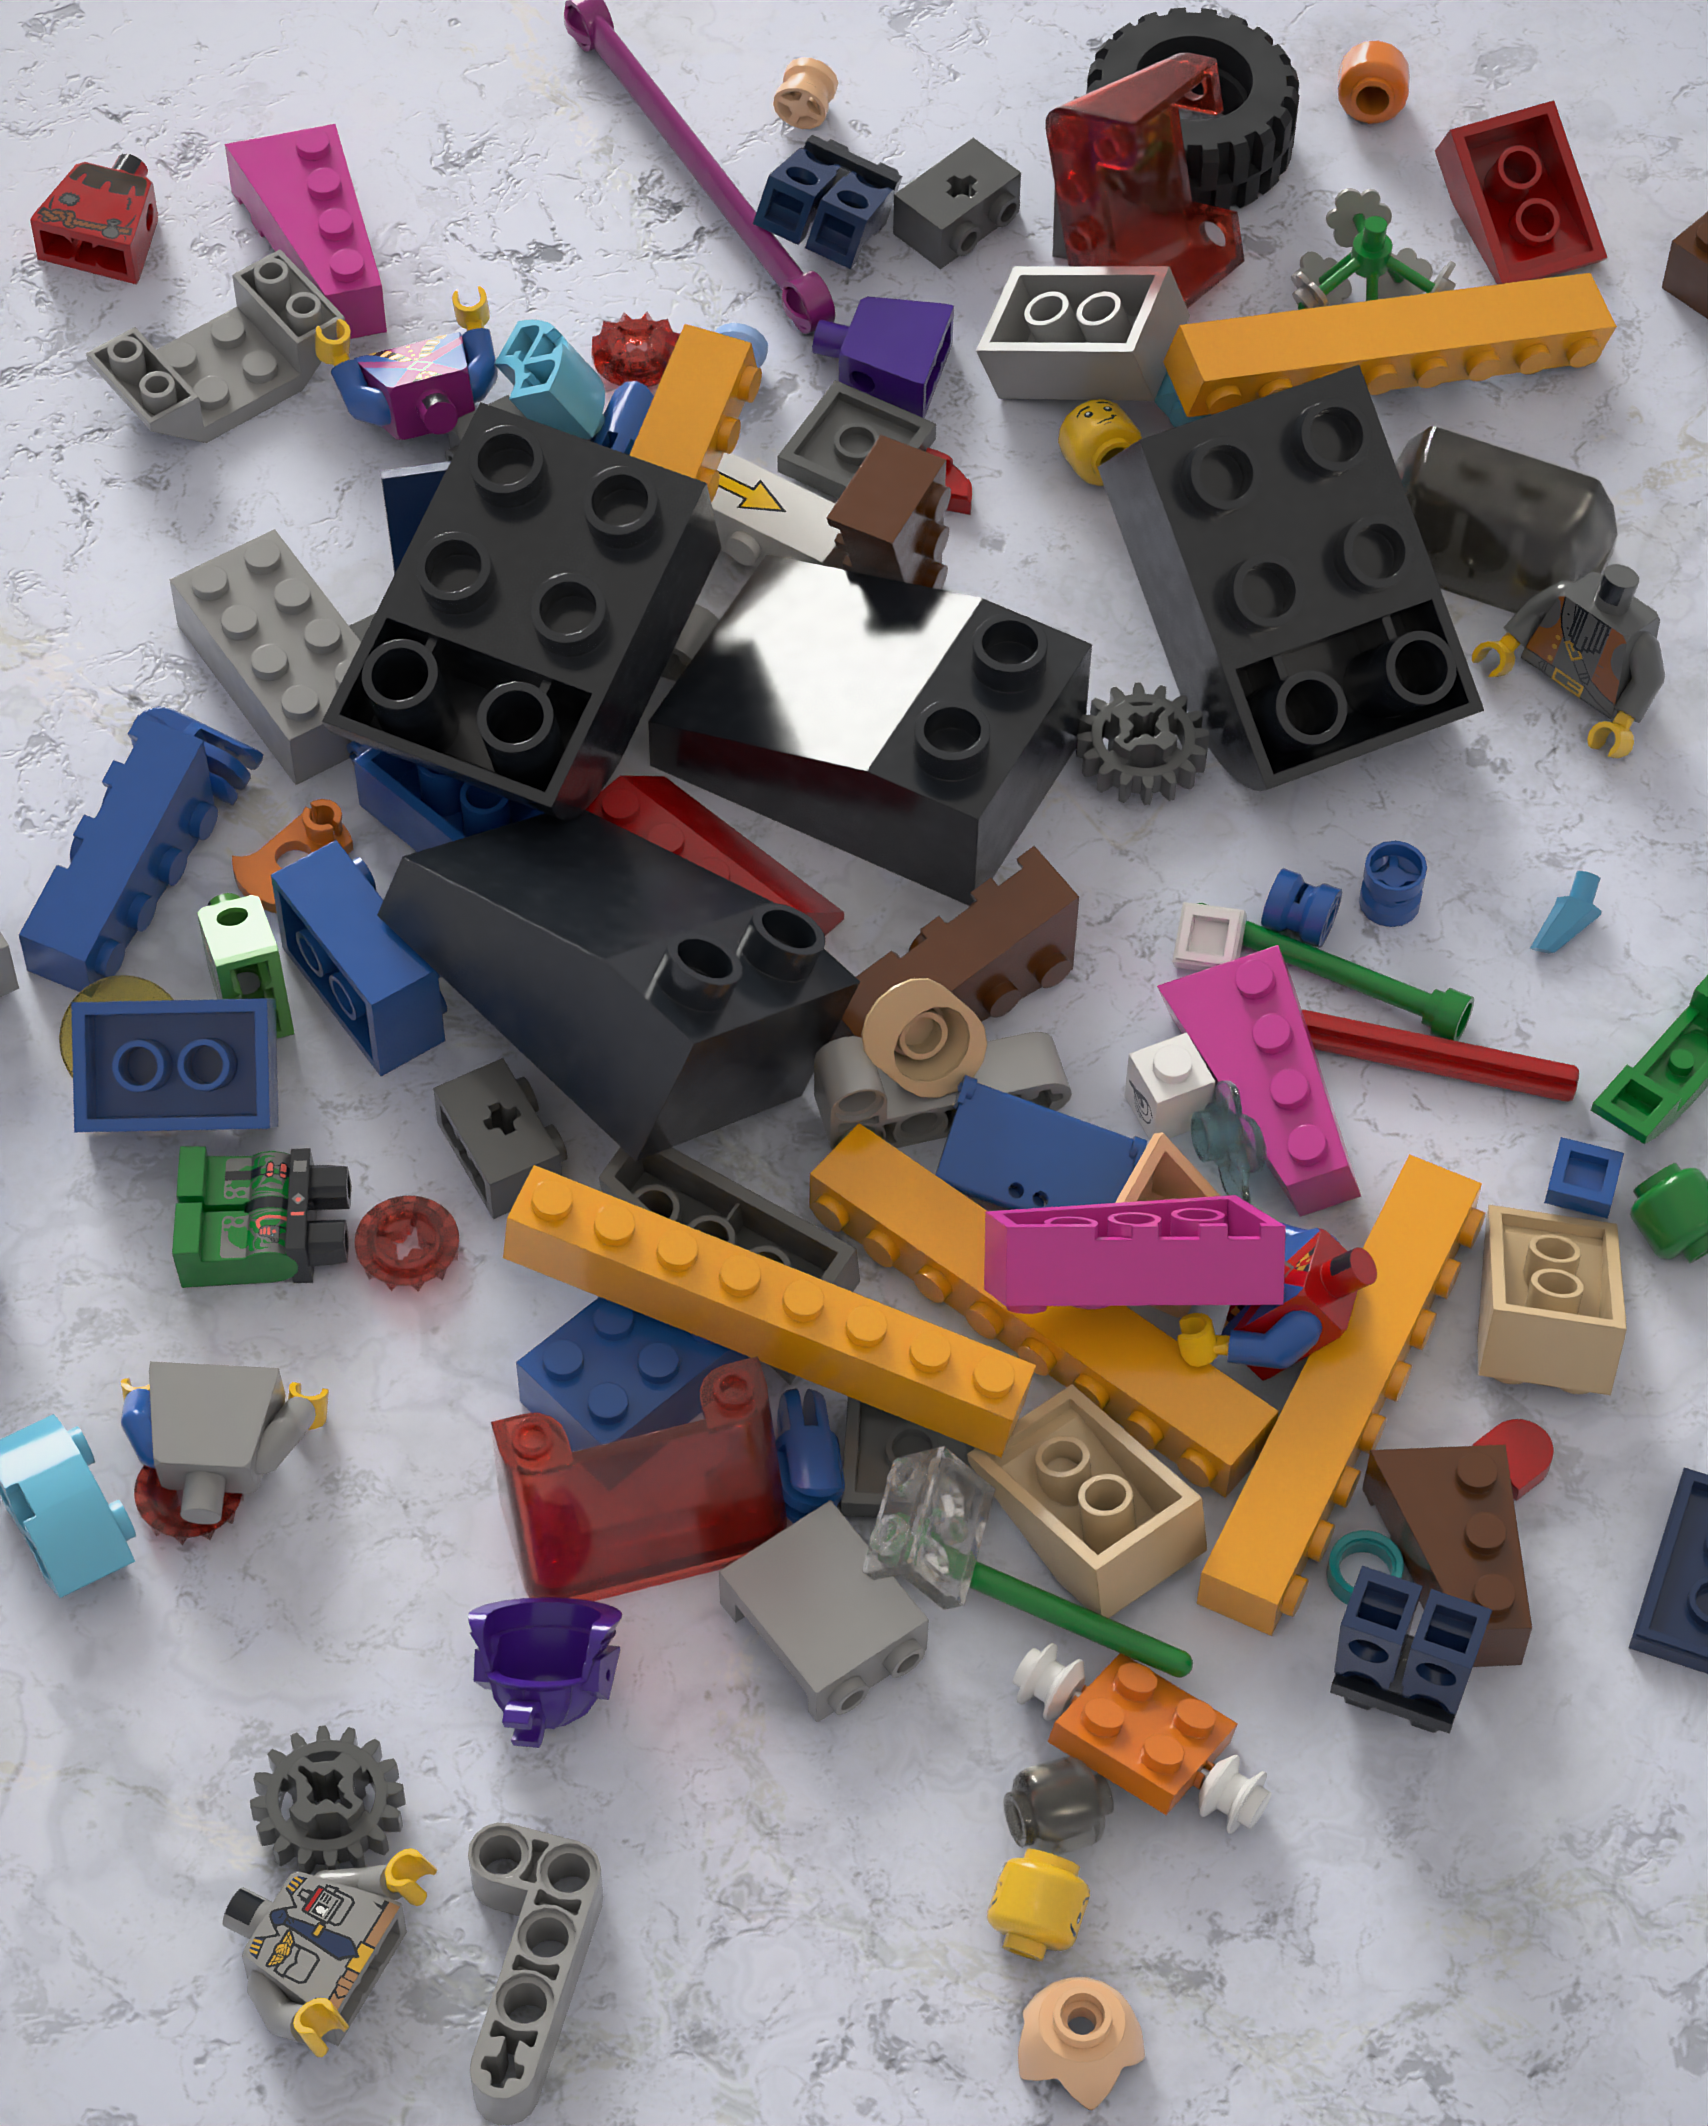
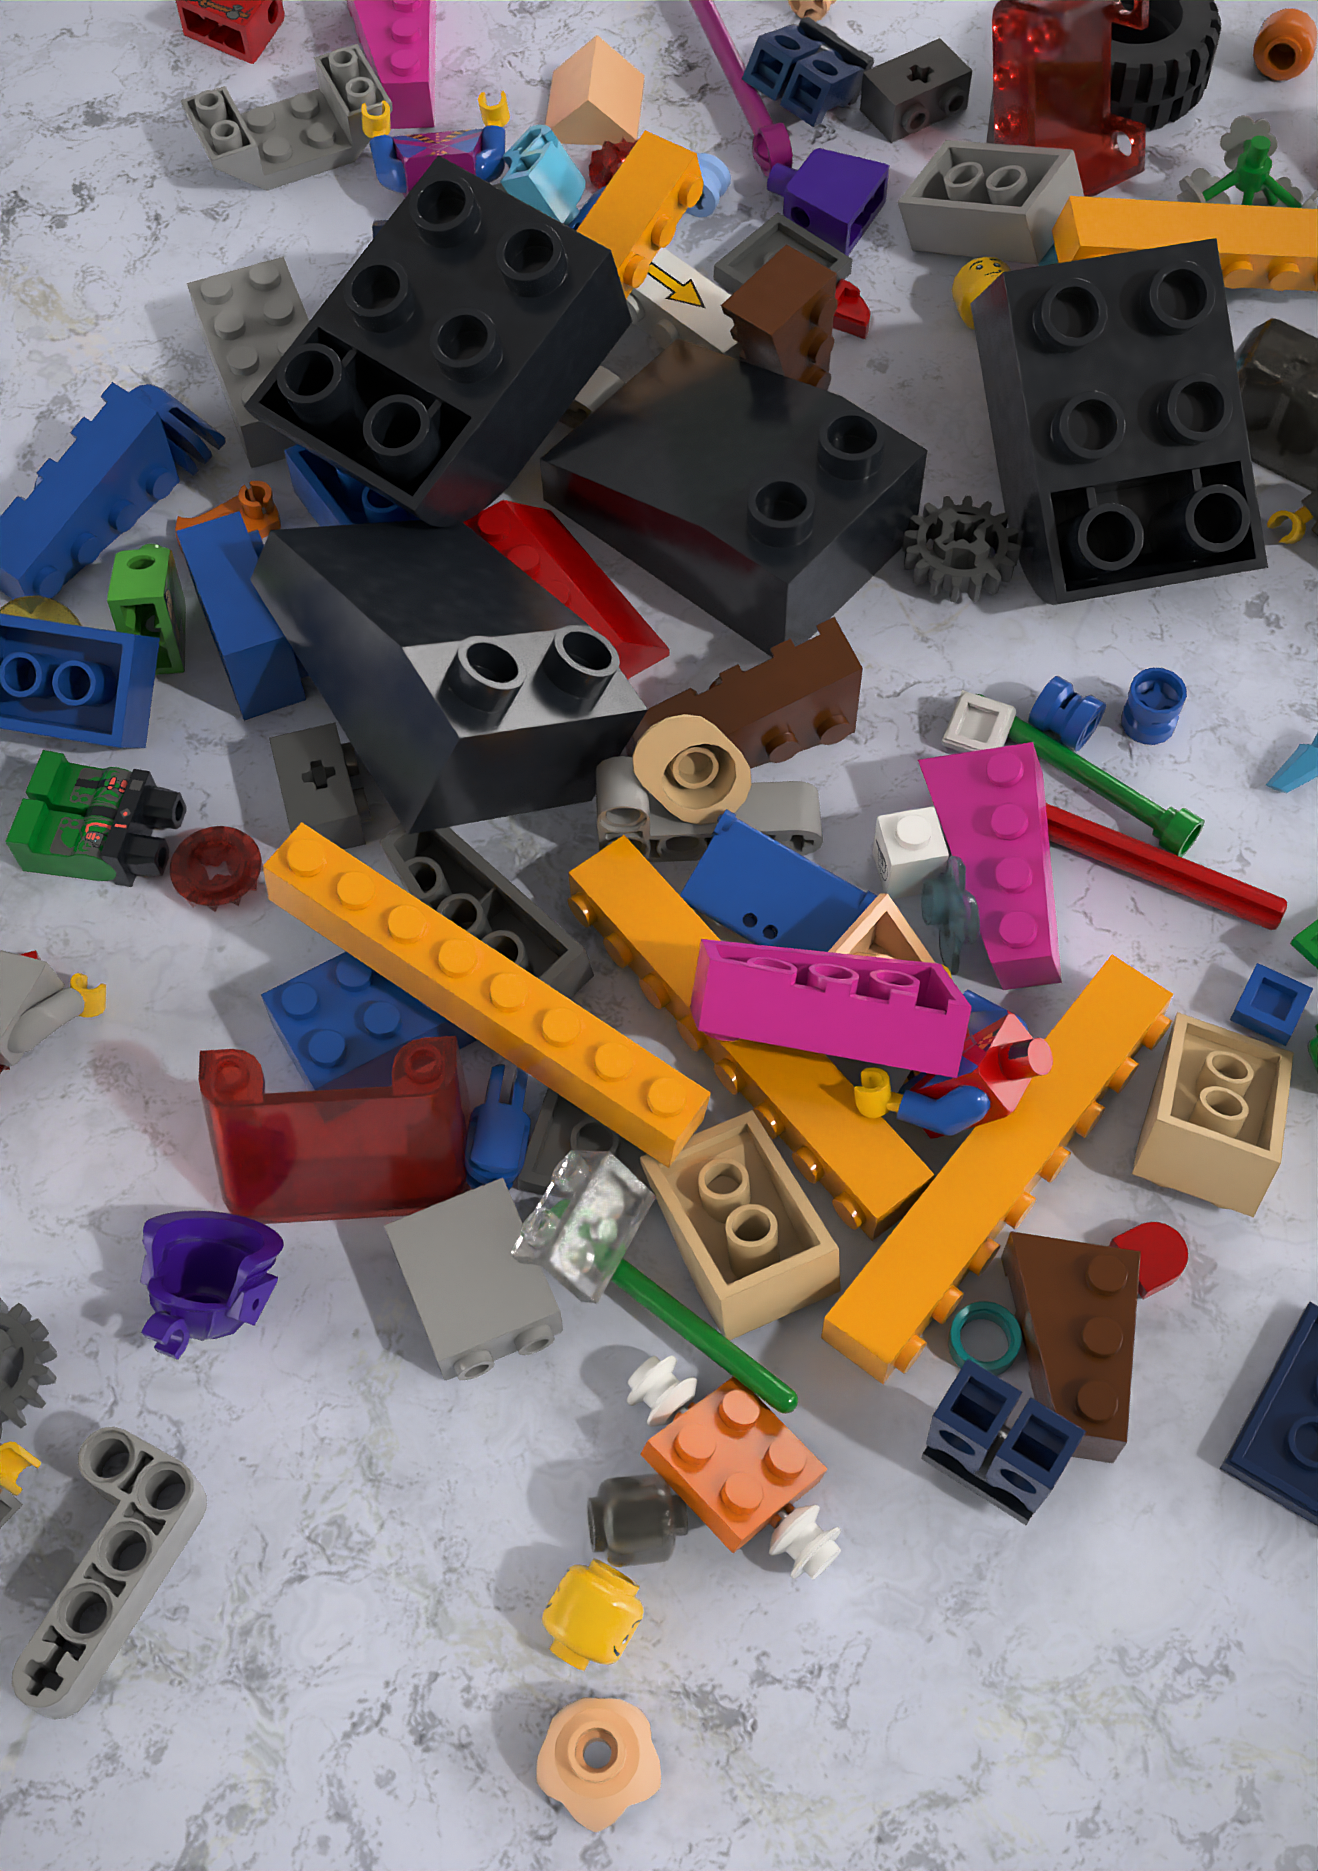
camera: 15 degrees right, 5 degrees up
(575, 268) = (595, 97): none -> light nougat slope

